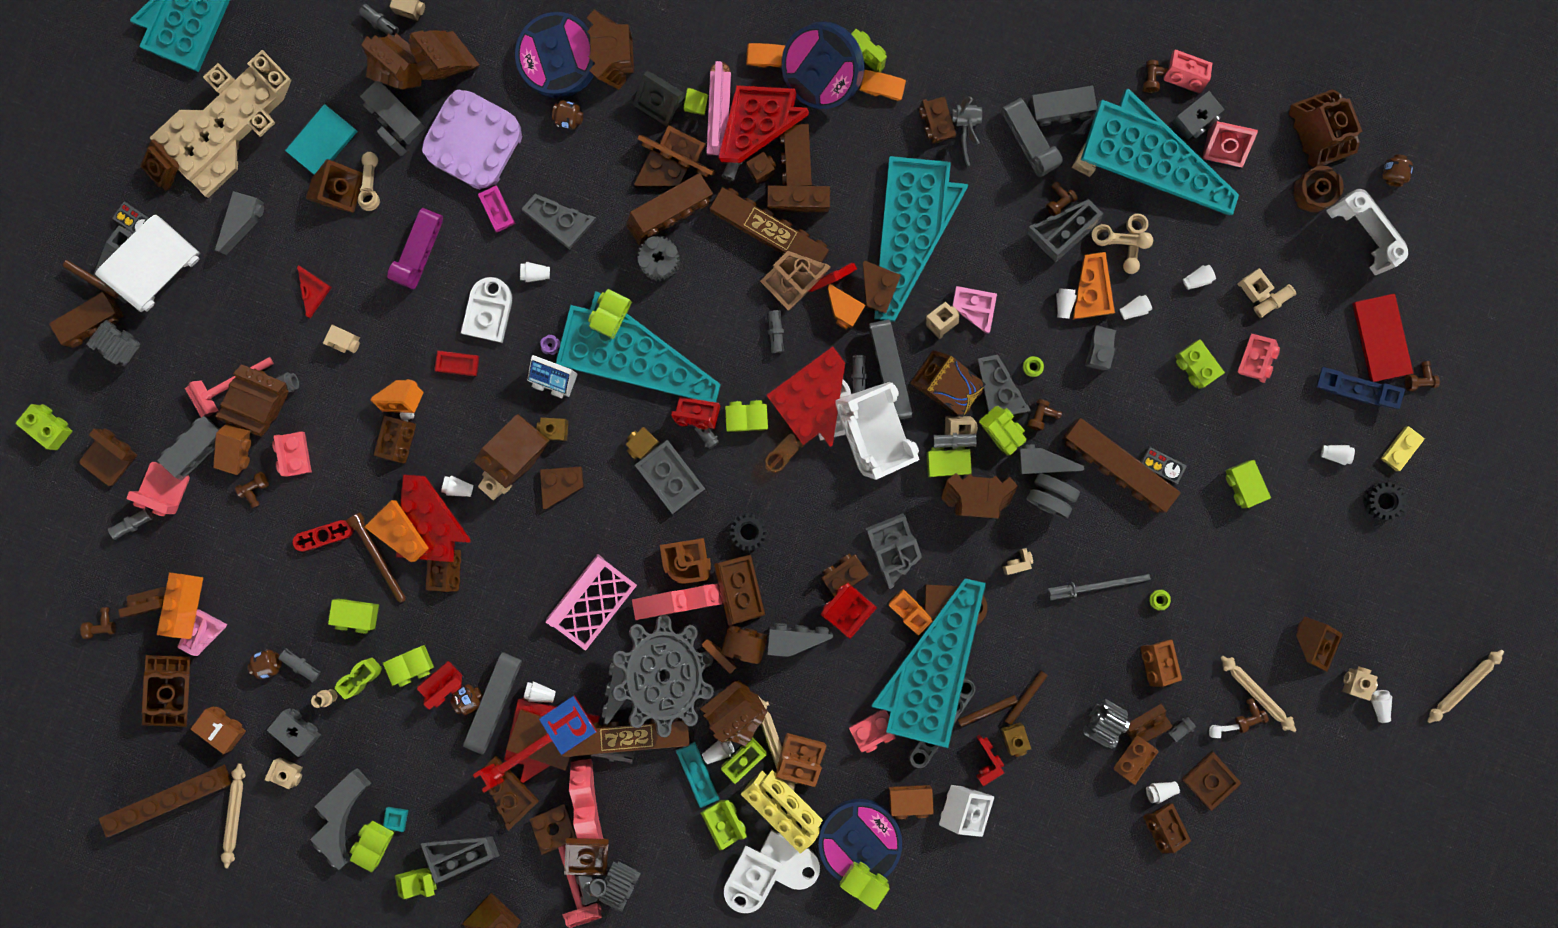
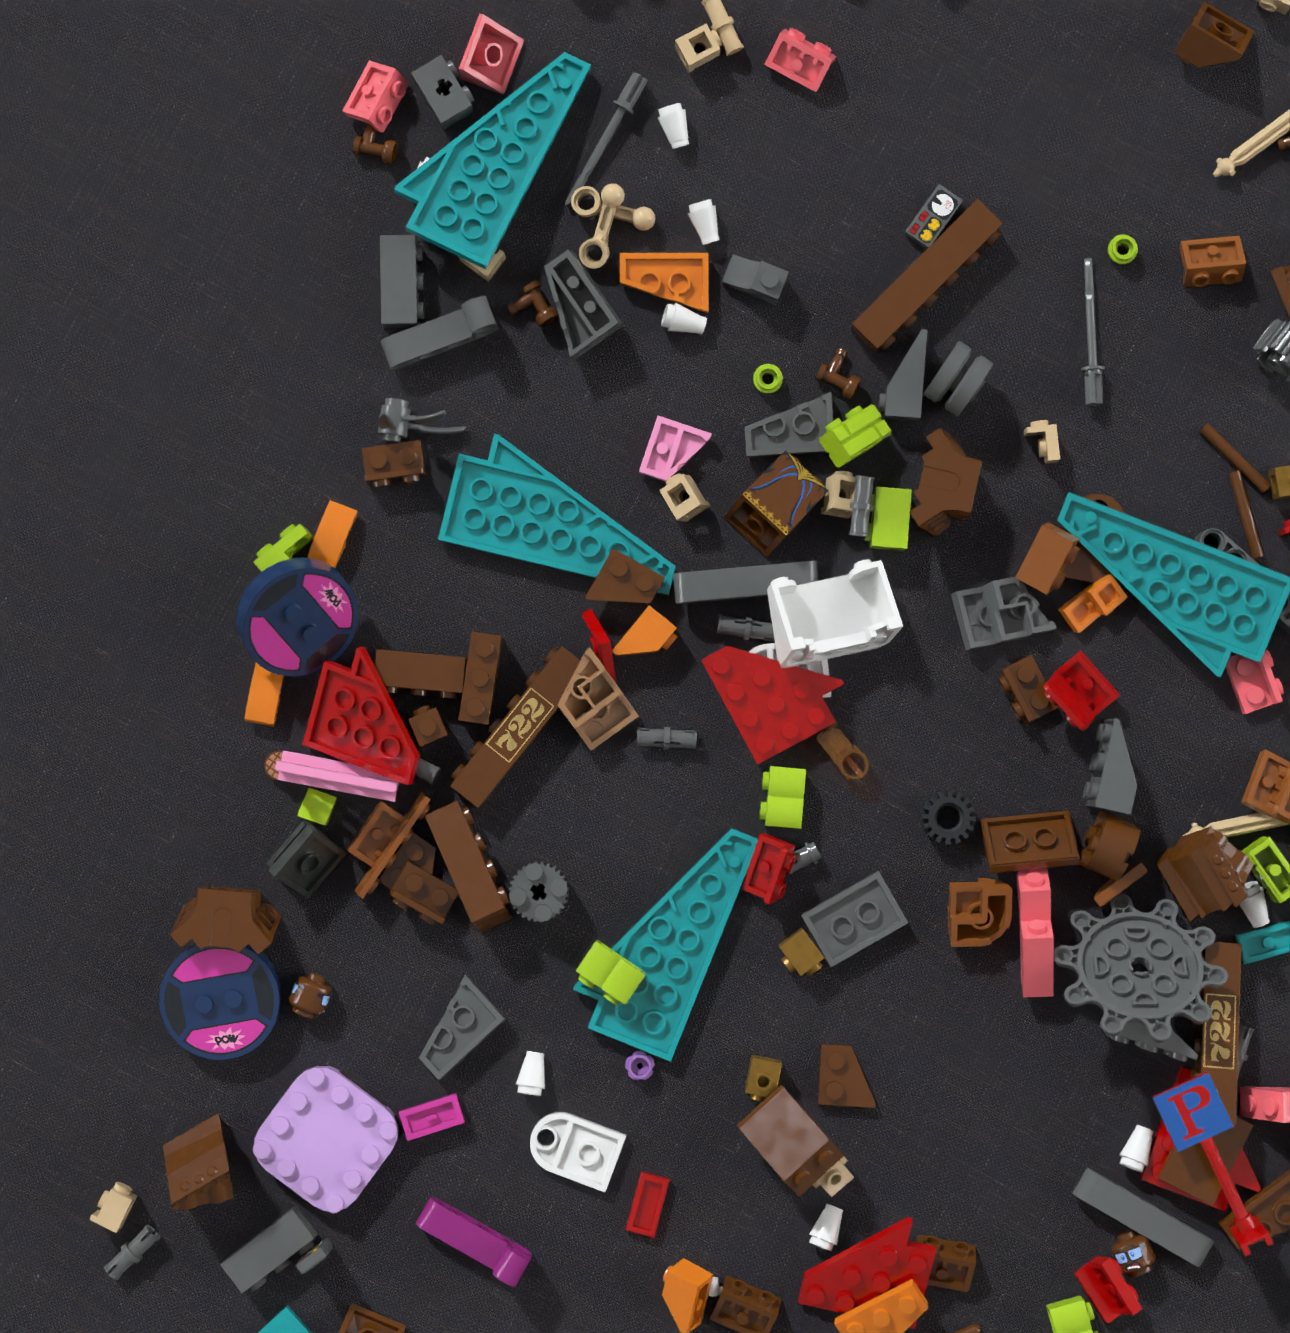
camera: 85 degrees left, 0 degrees up
(369, 161) = (334, 1293): tan piece -> none
(391, 62) = (201, 1239): reddish brown slope -> none
(551, 376) = (688, 1069): slope -> none
(576, 591) = (999, 1075): bright pink fence -> none
(646, 179) = (424, 893): none -> reddish brown bracket
(937, 575) = (1048, 558): none -> dark orange brick
(1199, 364) = (798, 144): lime brick -> none
(1208, 241) = (624, 104): none -> dark grey piece
(1247, 484) = (978, 103): lime brick -> none

